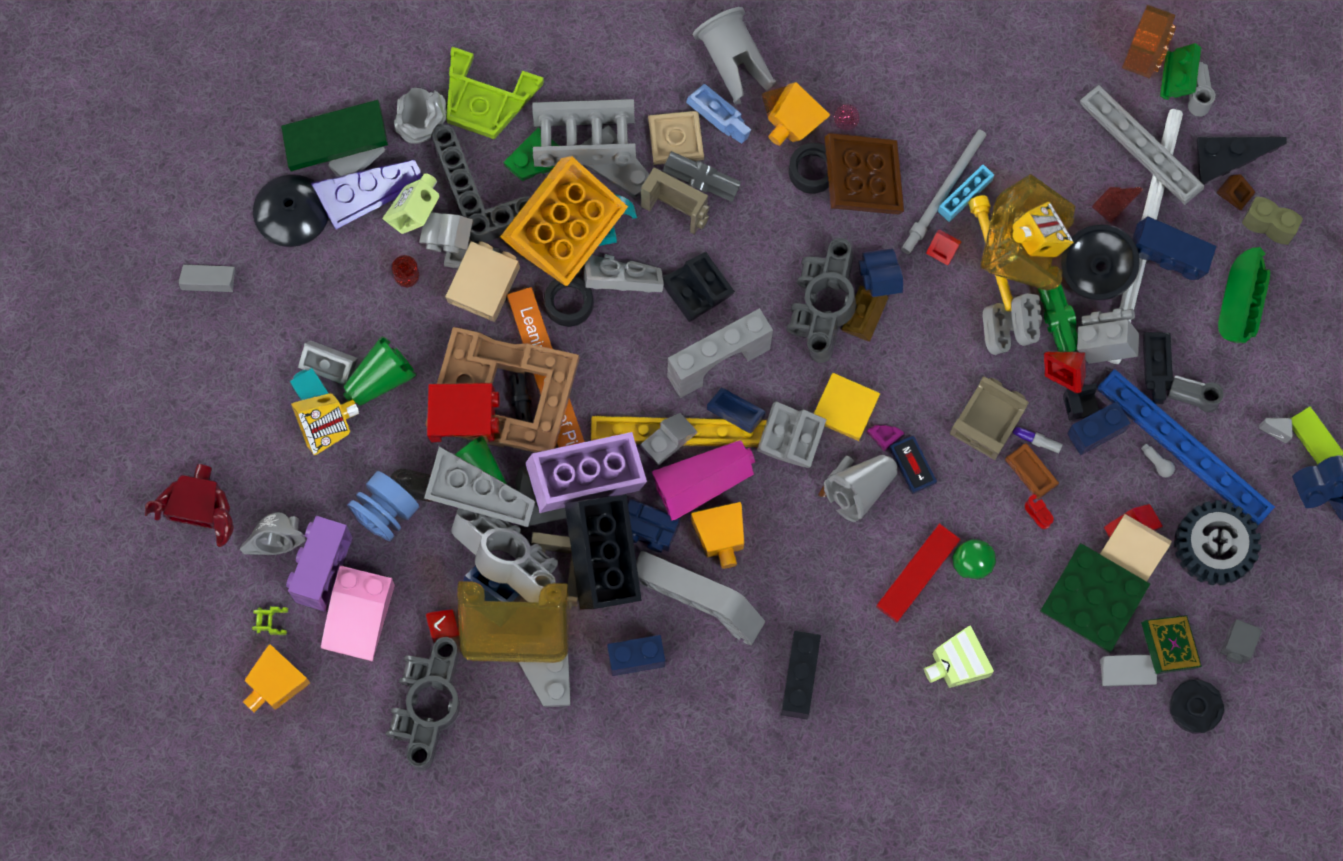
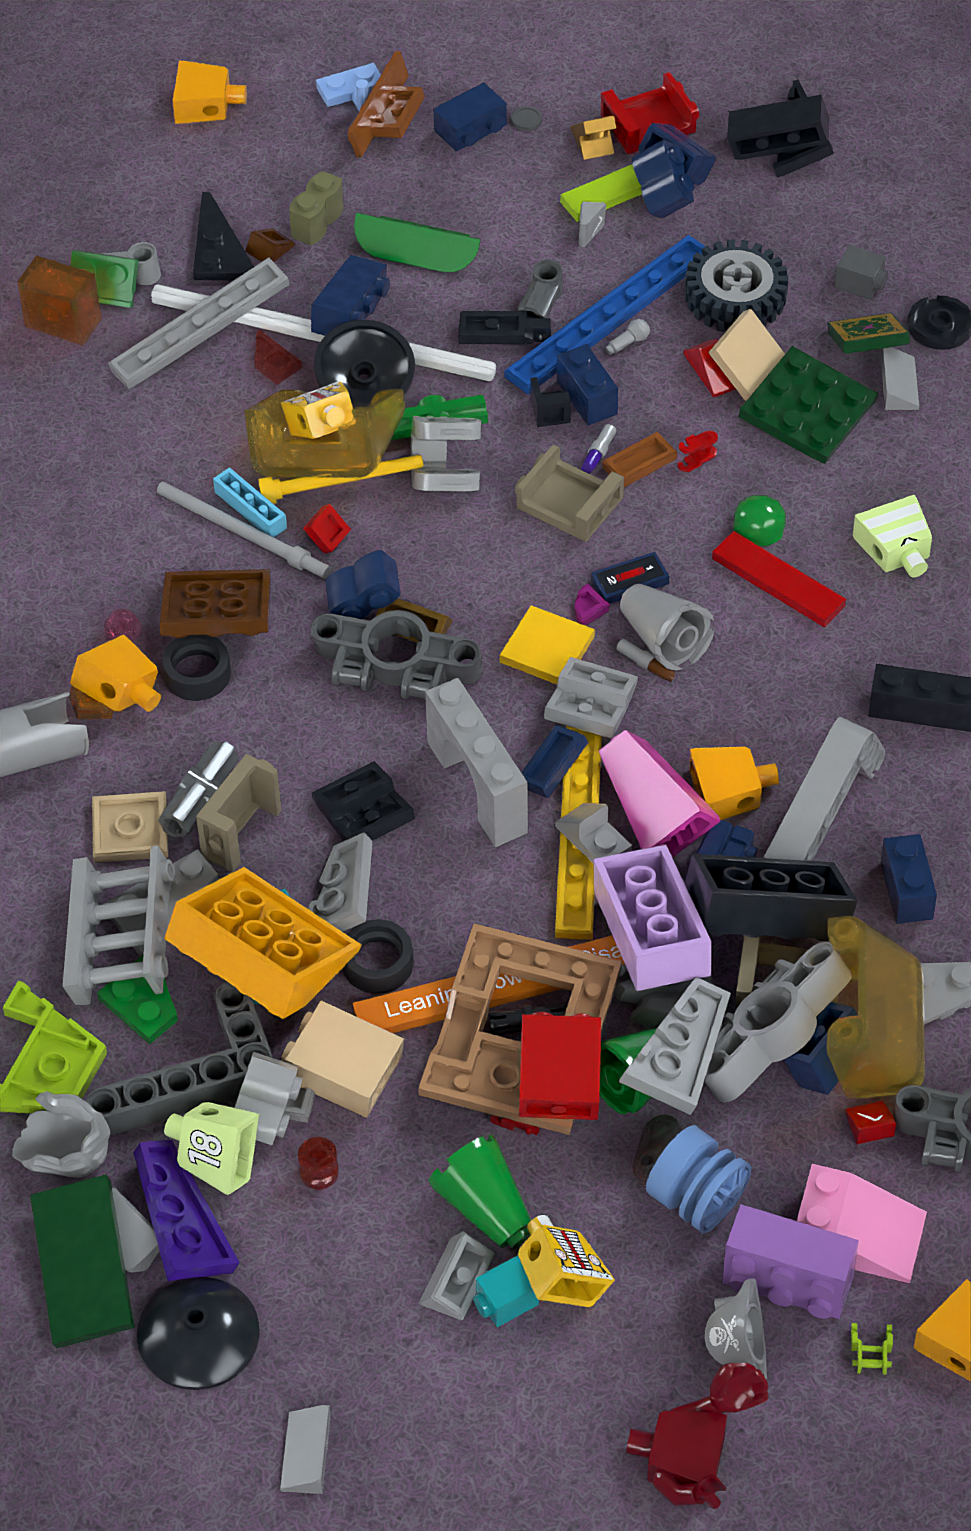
camera: 85 degrees left, 20 degrees down
(719, 113) = (100, 769): medium blue hinge -> none
(1066, 369) = (510, 404): red slope -> none
(1108, 336) = (473, 360): light grey brick -> none

